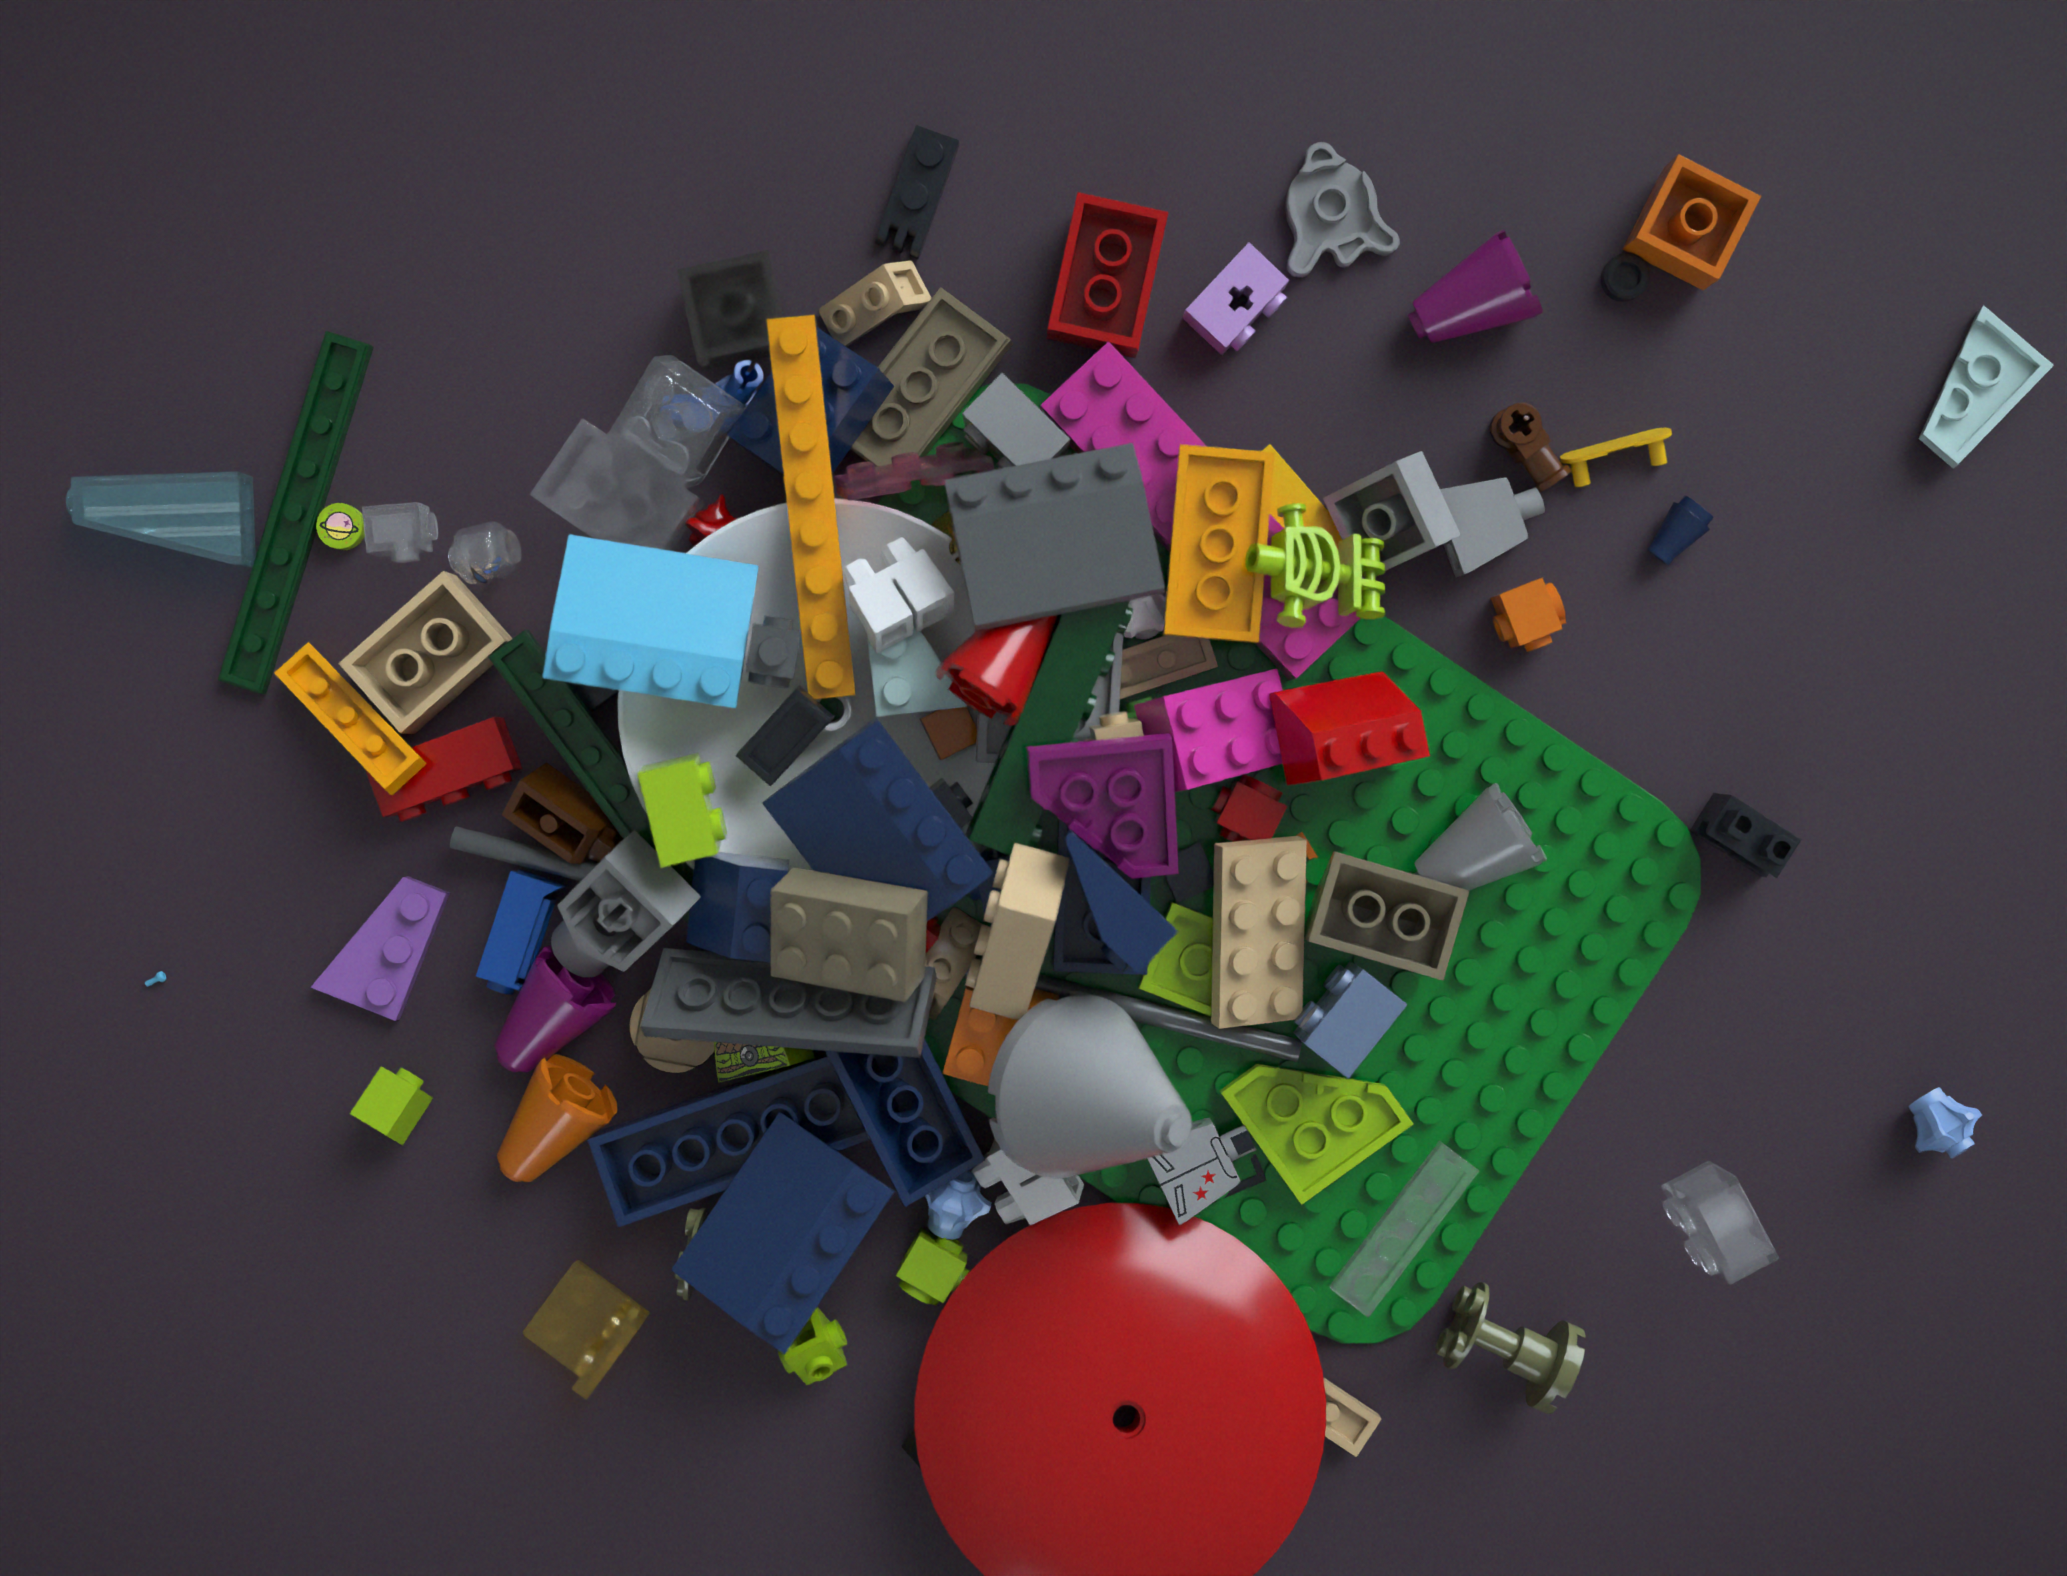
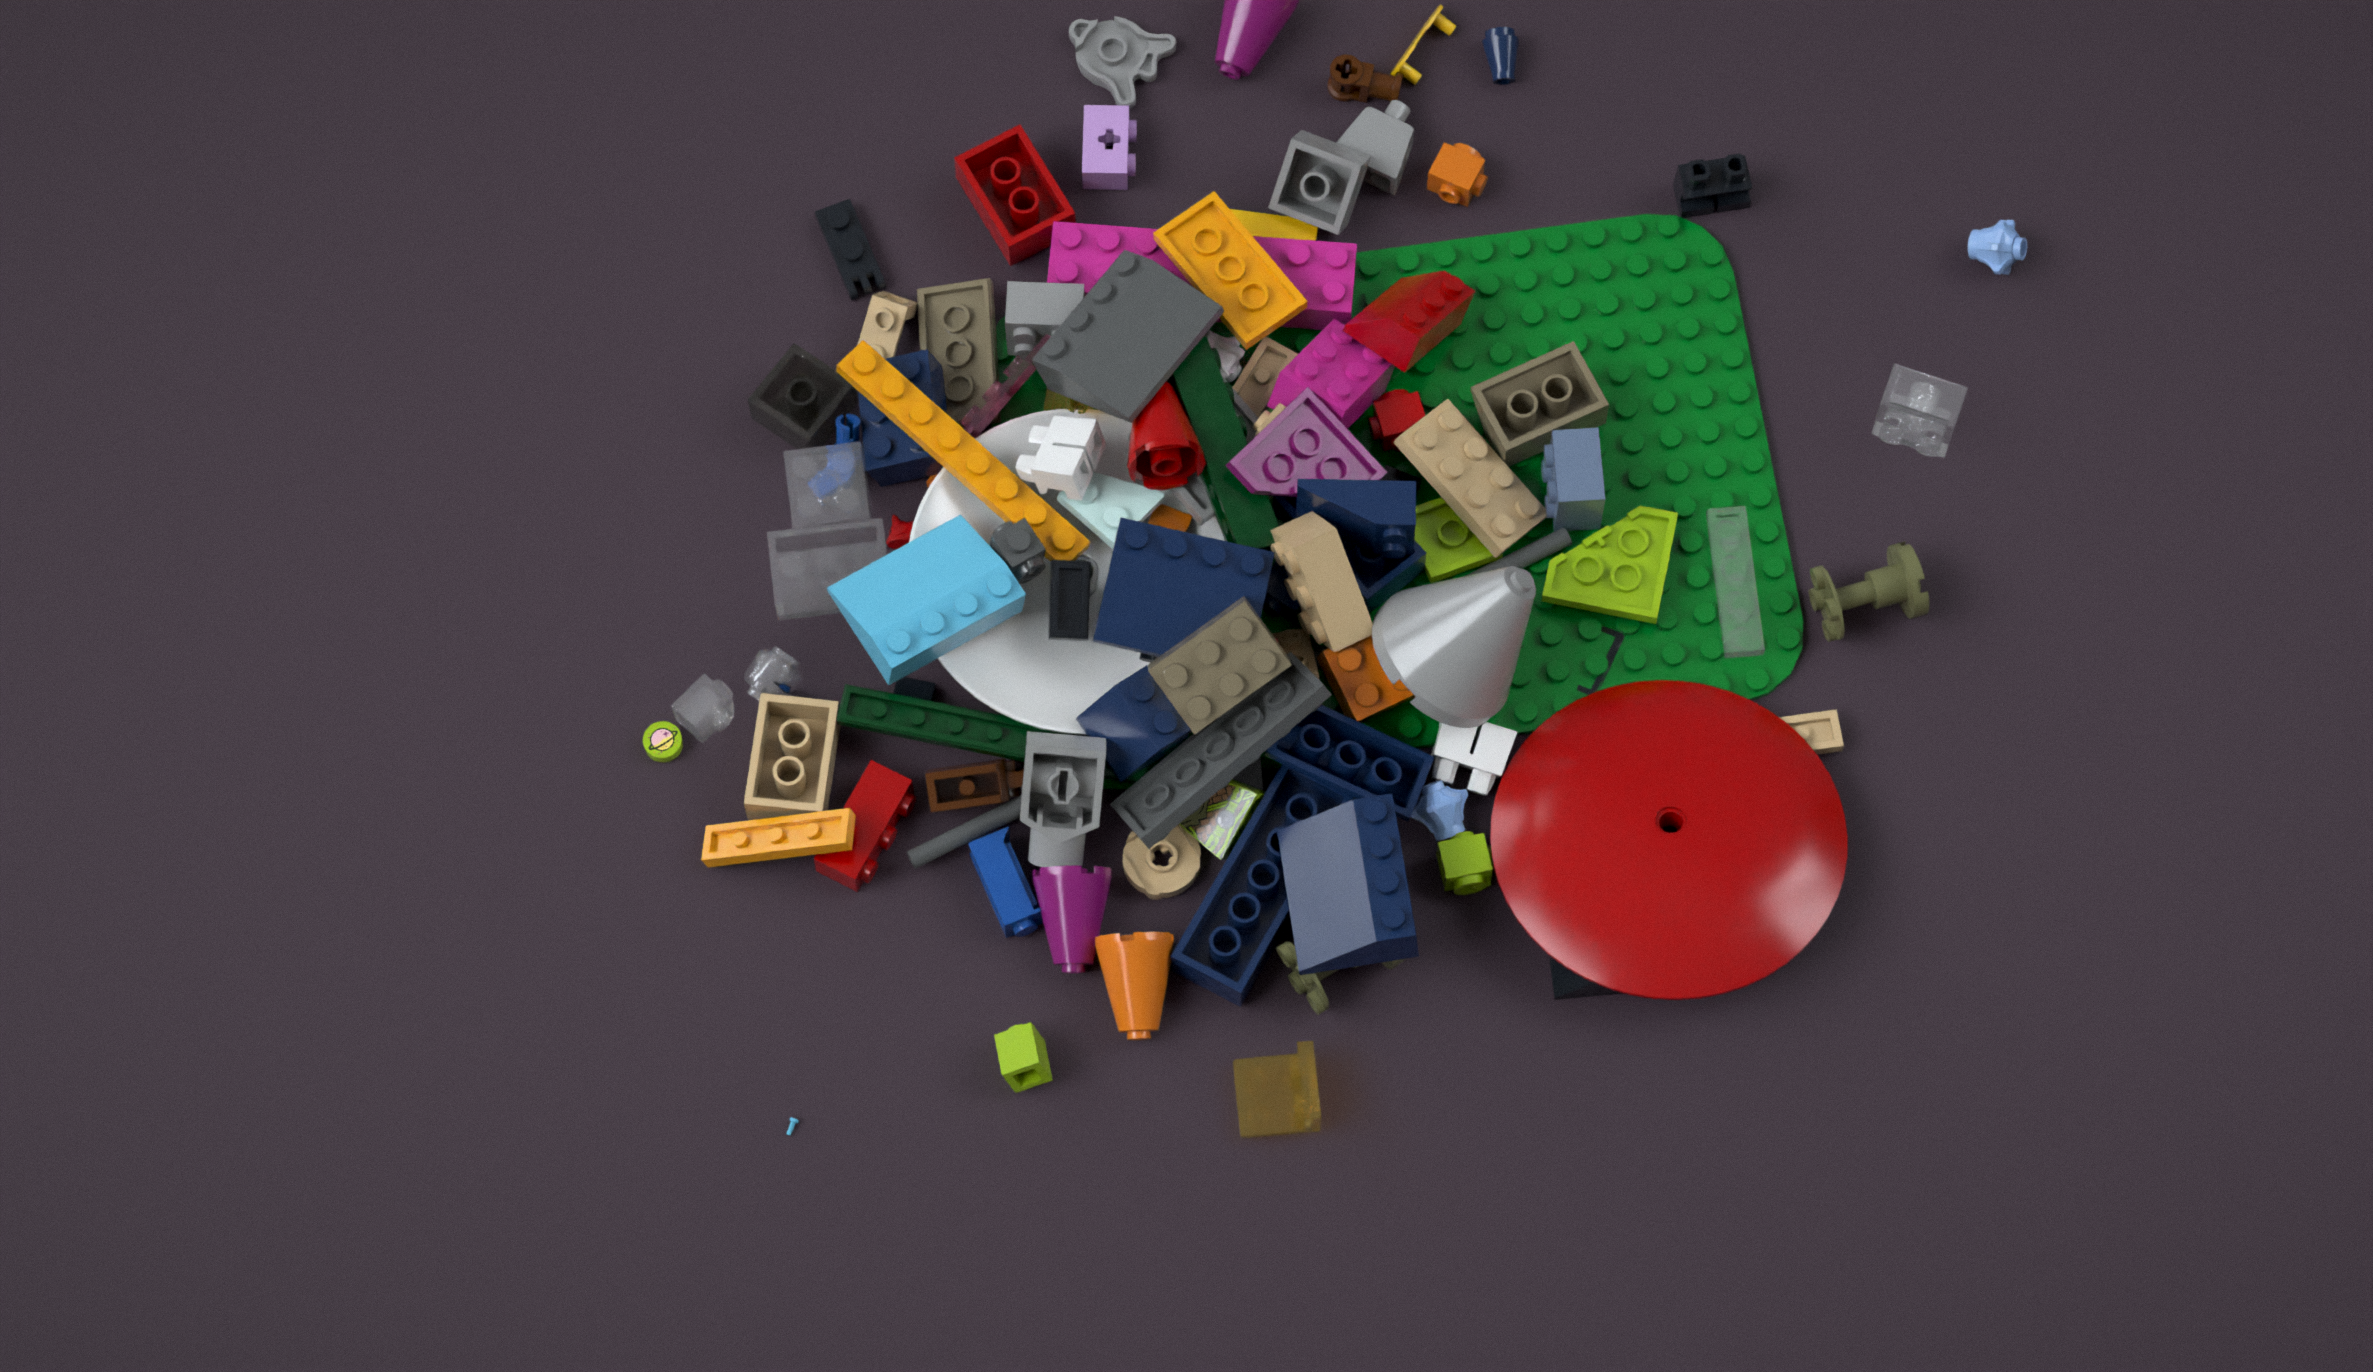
camera: 45 degrees left, 20 degrees down
(179, 511) = (544, 820): clear light blue slope -> none
(295, 512) = (626, 760): dark green tile -> none
(387, 951) = (930, 976): medium lavender wing -> none
(681, 809) = (1046, 683): lime brick -> none
(816, 1349) = (1435, 973): lime brick -> none
(1200, 1168) = (1566, 652): light grey torso -> none
(1308, 558) = (1301, 237): lime piece -> none
(1481, 845) = (1559, 310): light grey cone -> none

